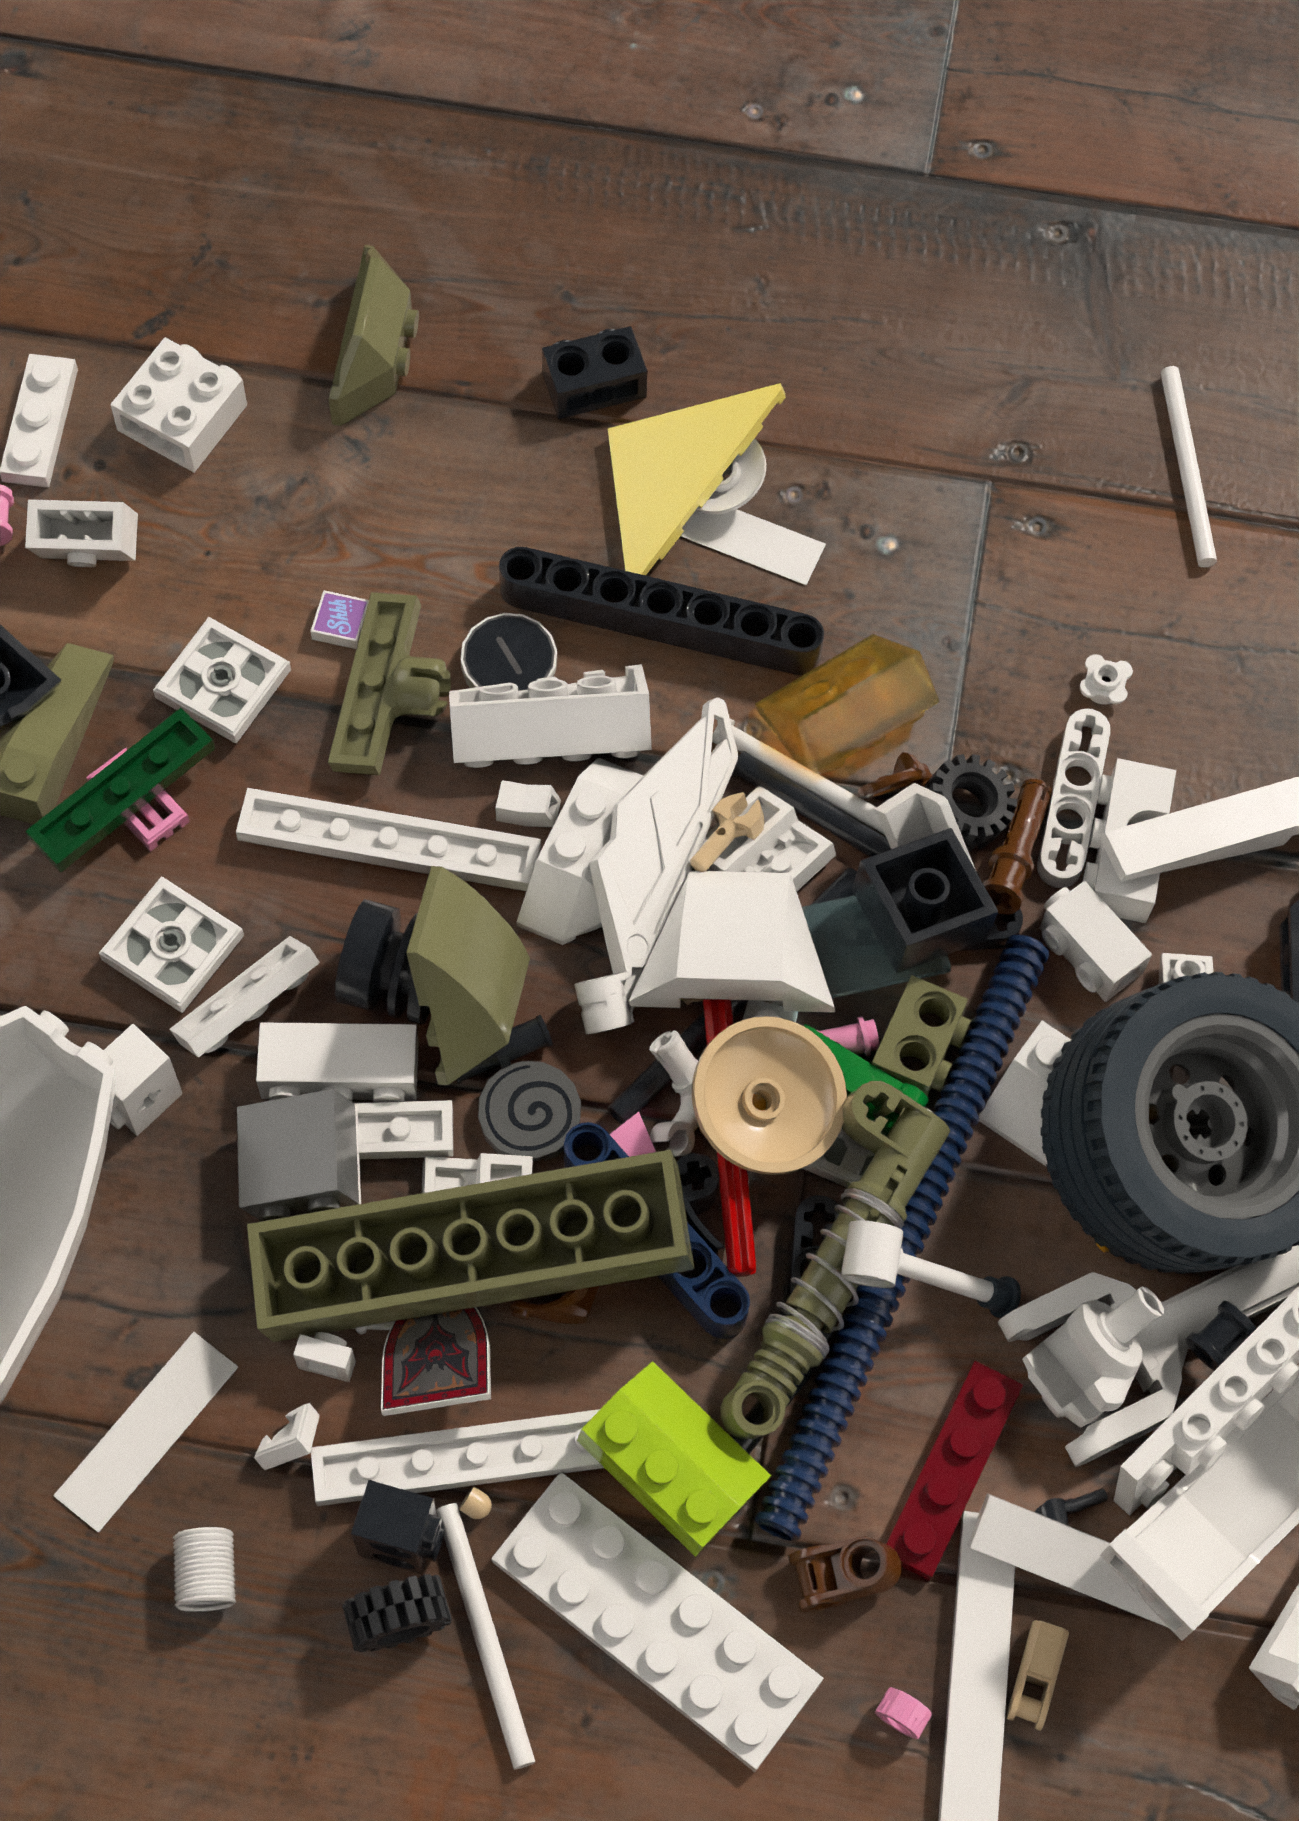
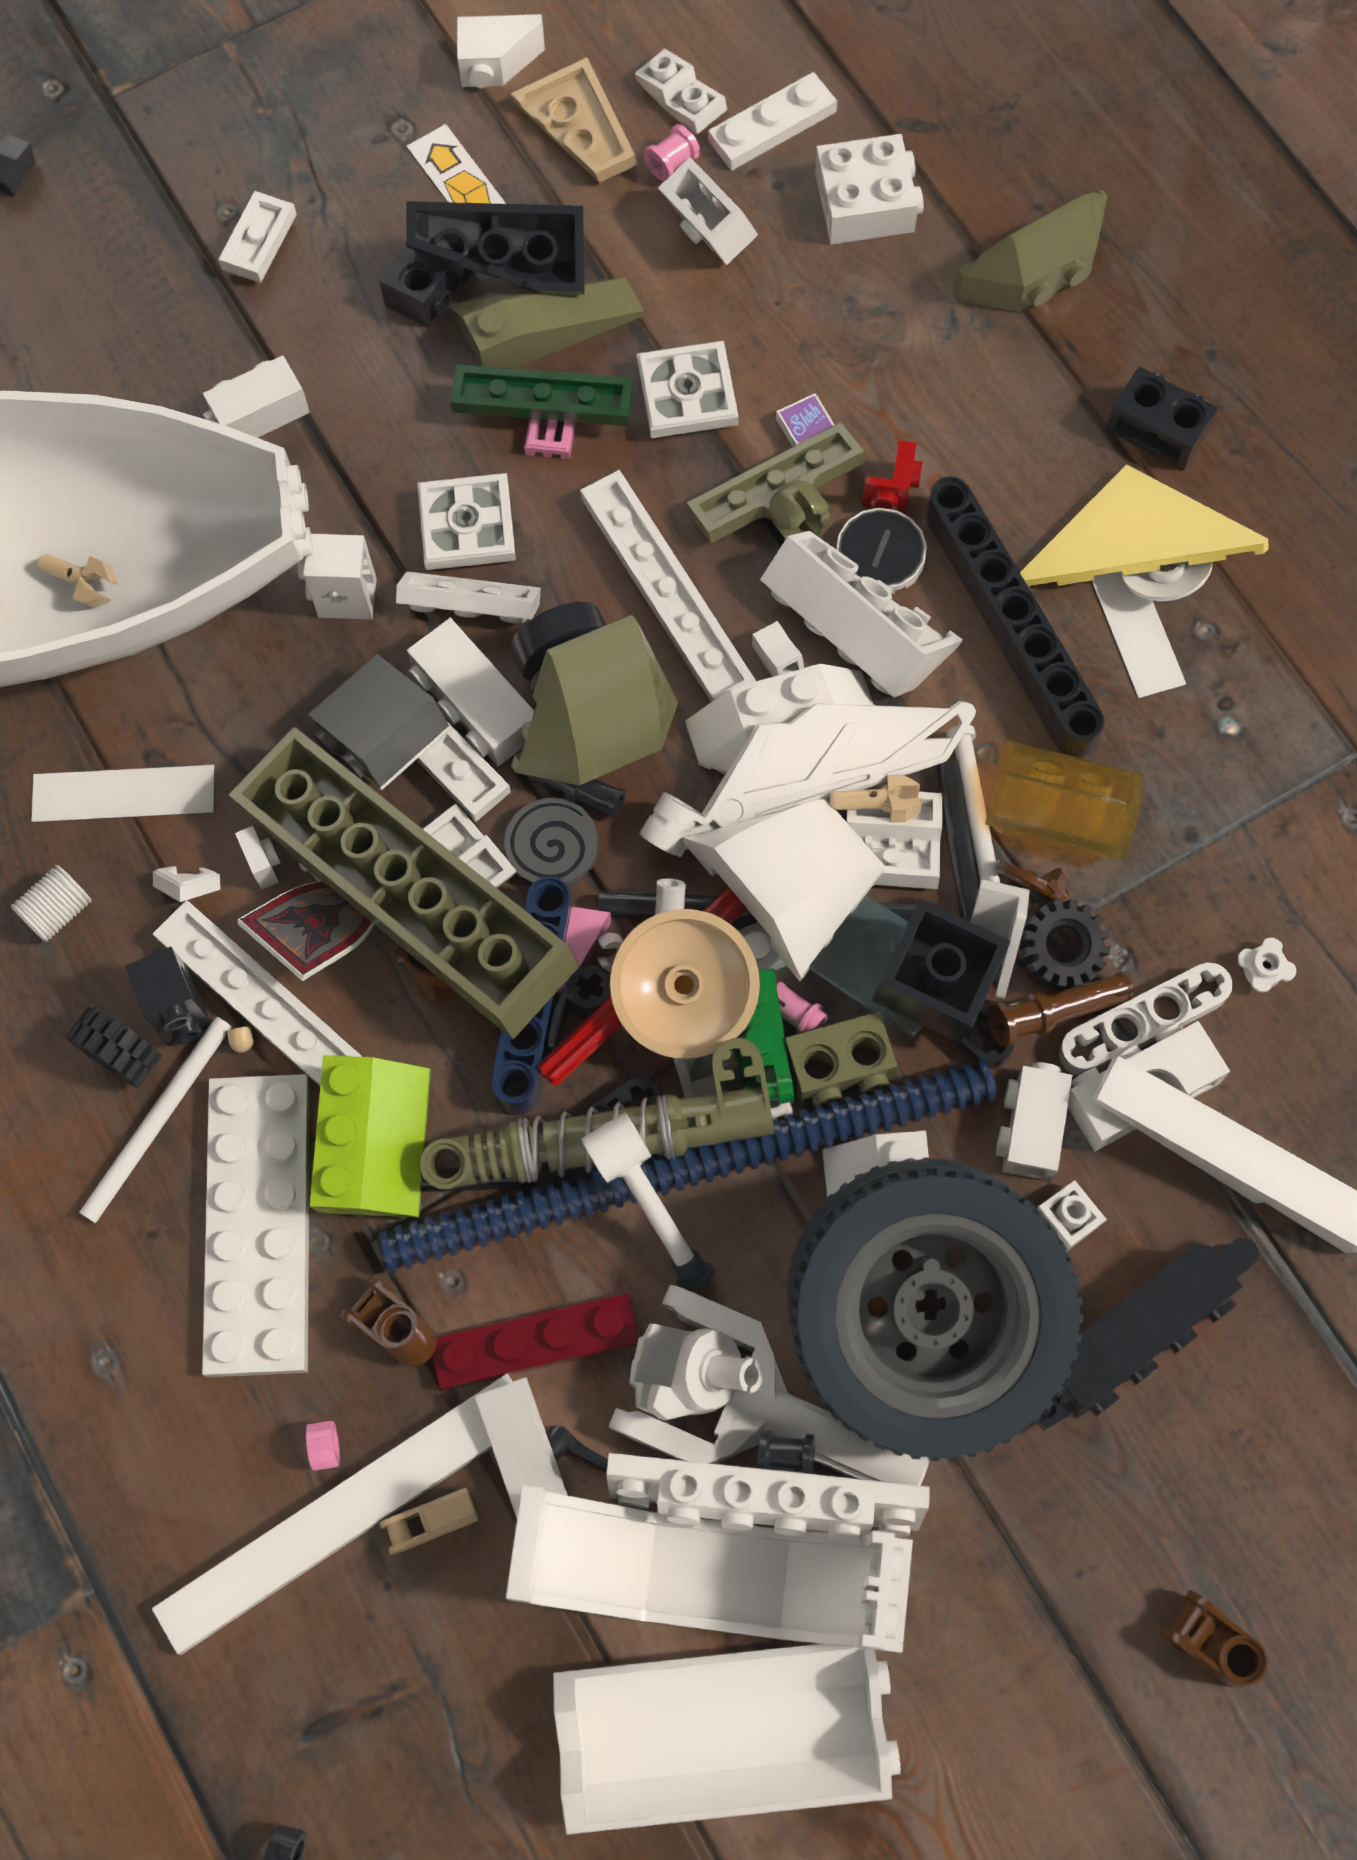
camera: 55 degrees right, 5 degrees up
(466, 590) = (894, 492): none -> red bracket

